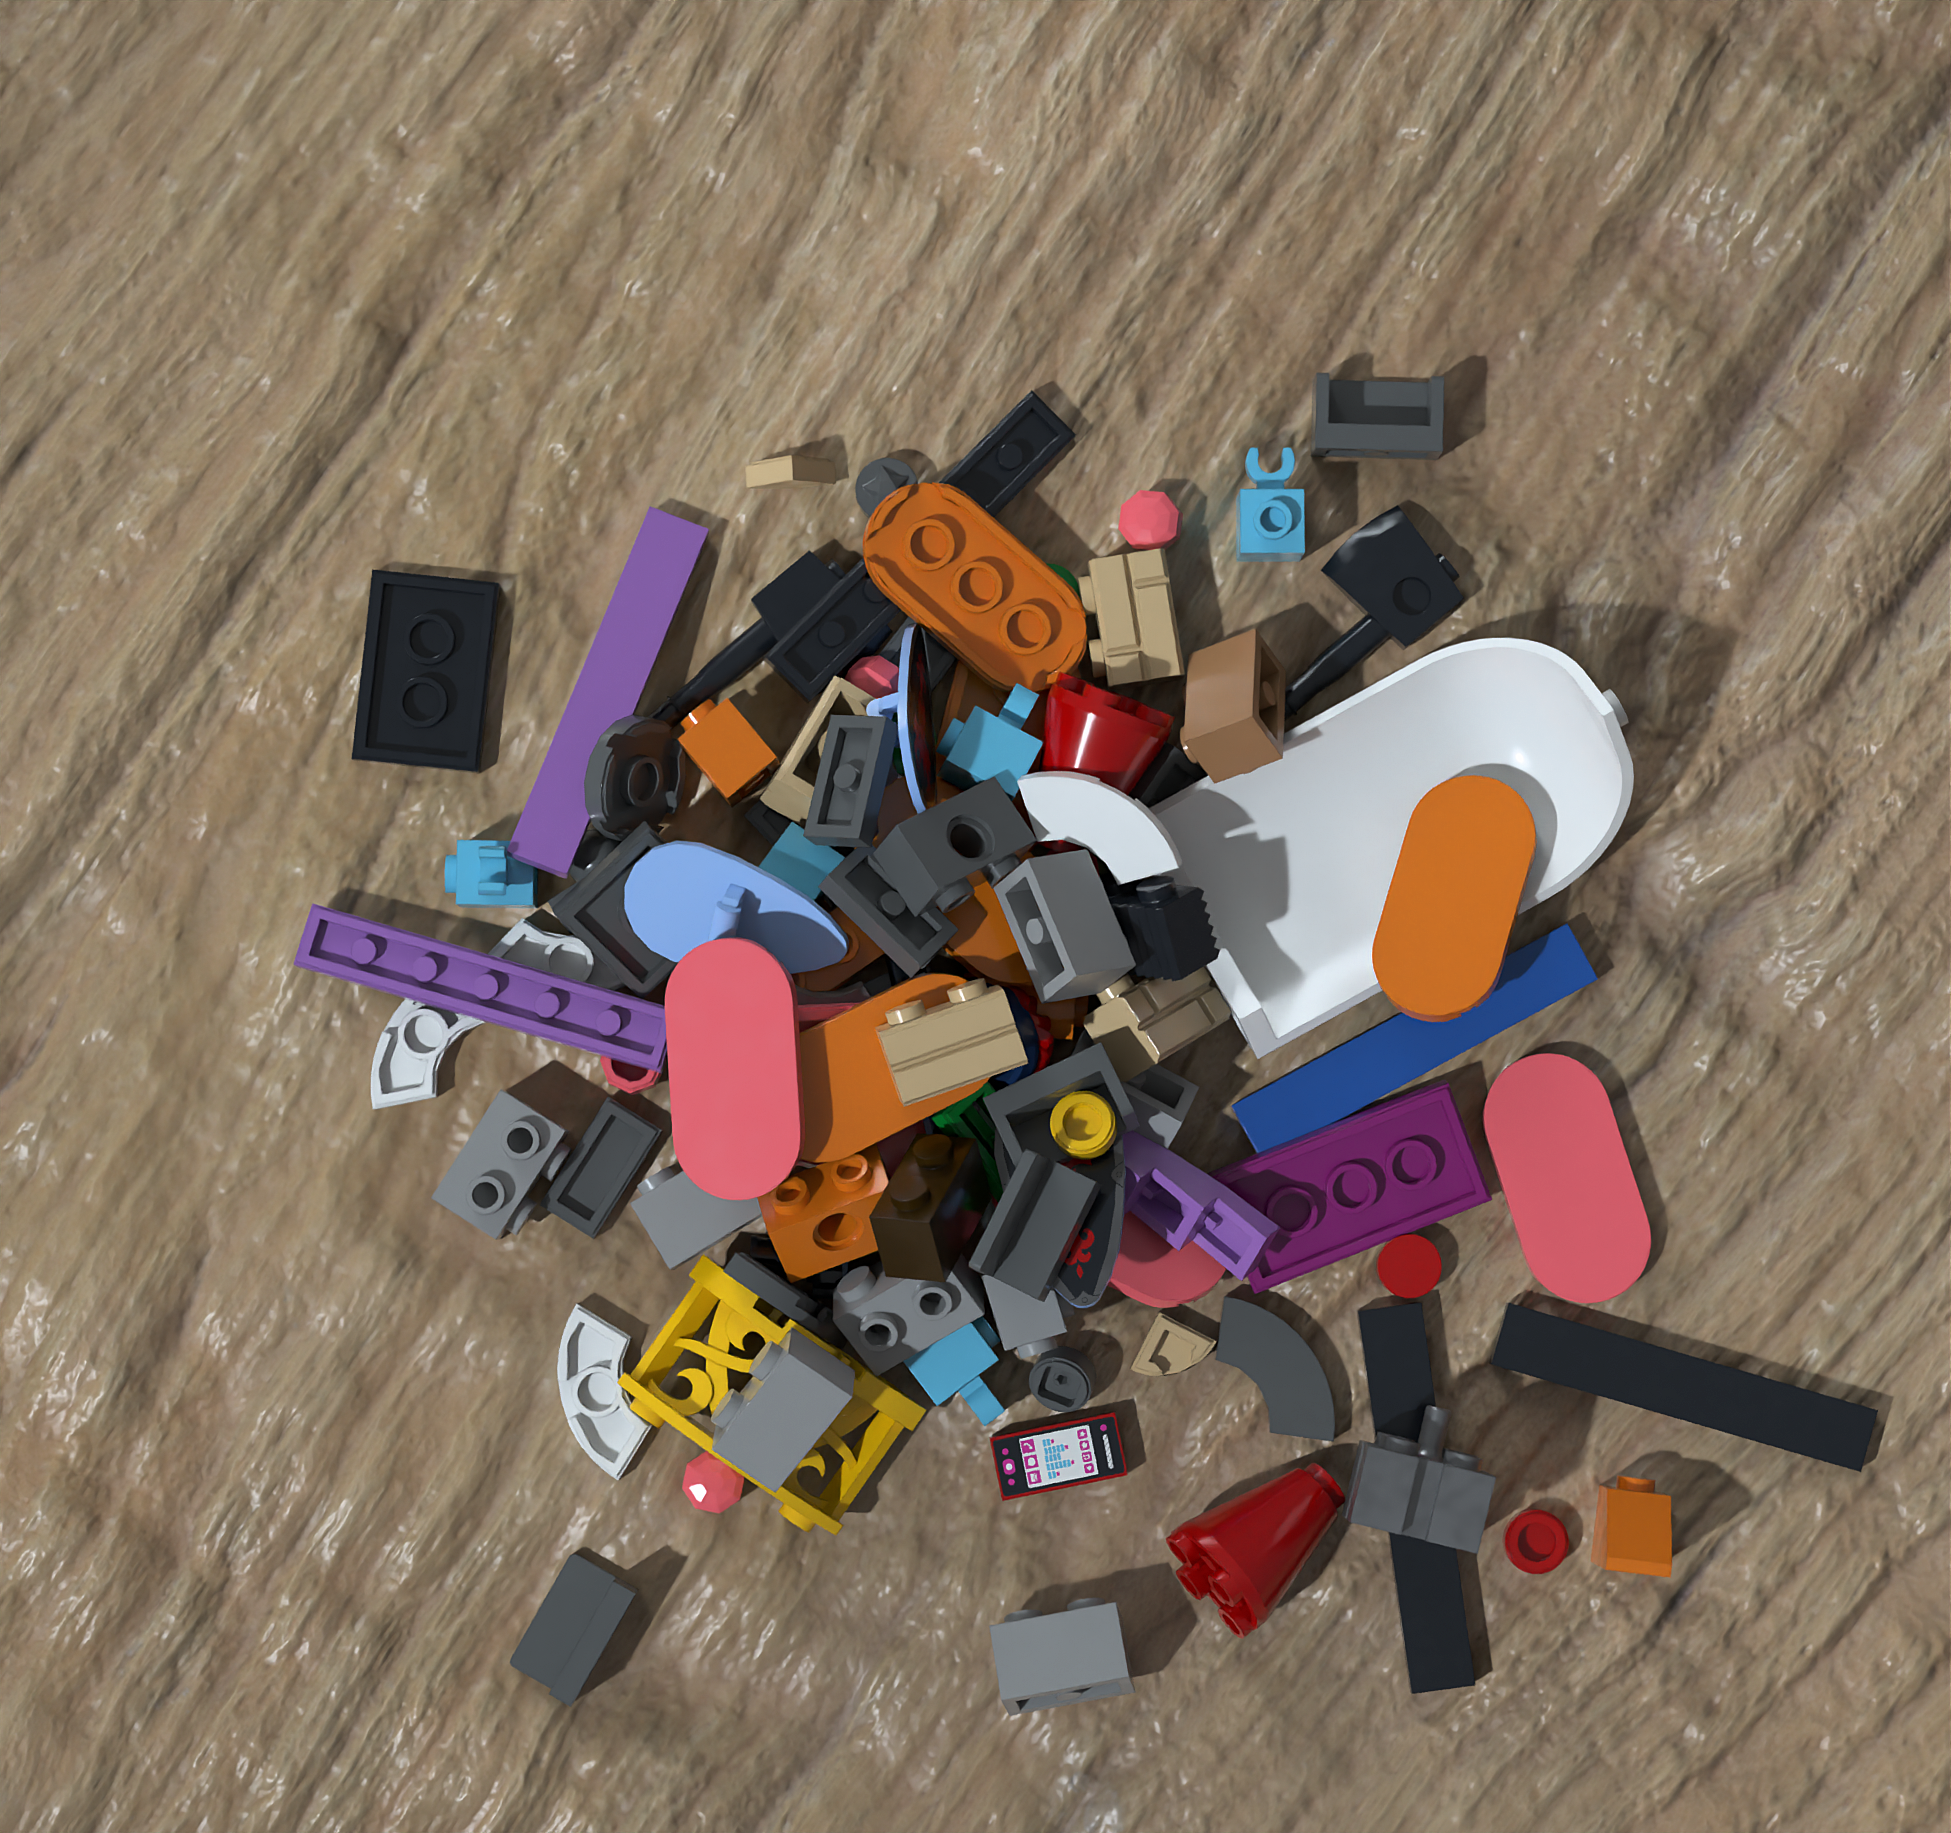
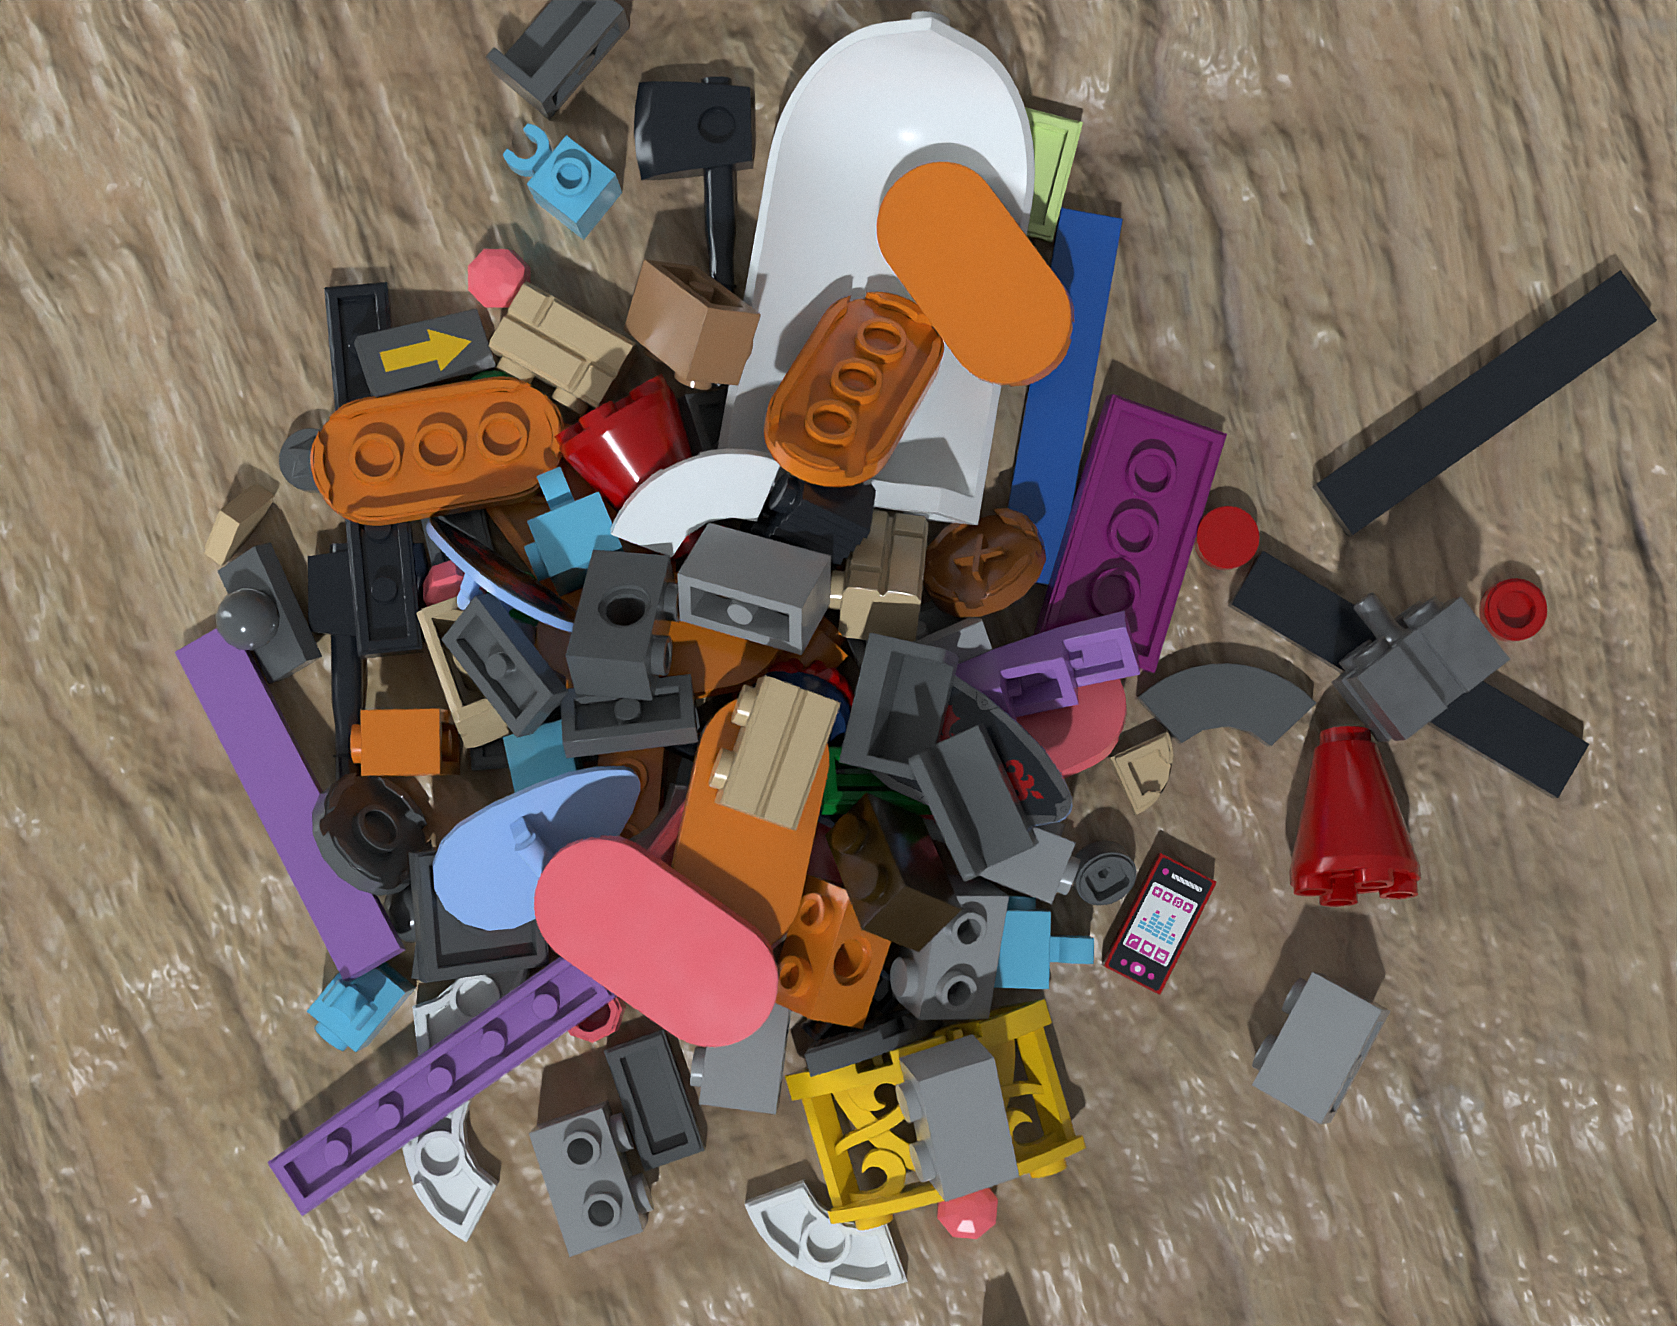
camera: 45 degrees left, 0 degrees up
(426, 671) = (162, 927): black tile -> none
(737, 554) = (264, 614): none -> dark grey tile
(1043, 513) = (424, 353): none -> dark grey tile
(1083, 1125) = (923, 699): yellow tile -> none
(1228, 1089) = (983, 565): none -> dark orange tile
(1284, 876) = (853, 390): none -> orange tile
(1566, 1178) = (1255, 364): coral tile -> none
(1606, 881) = (1054, 151): none -> yellowish green tile
(1633, 1528) = (1571, 527): orange slope -> none

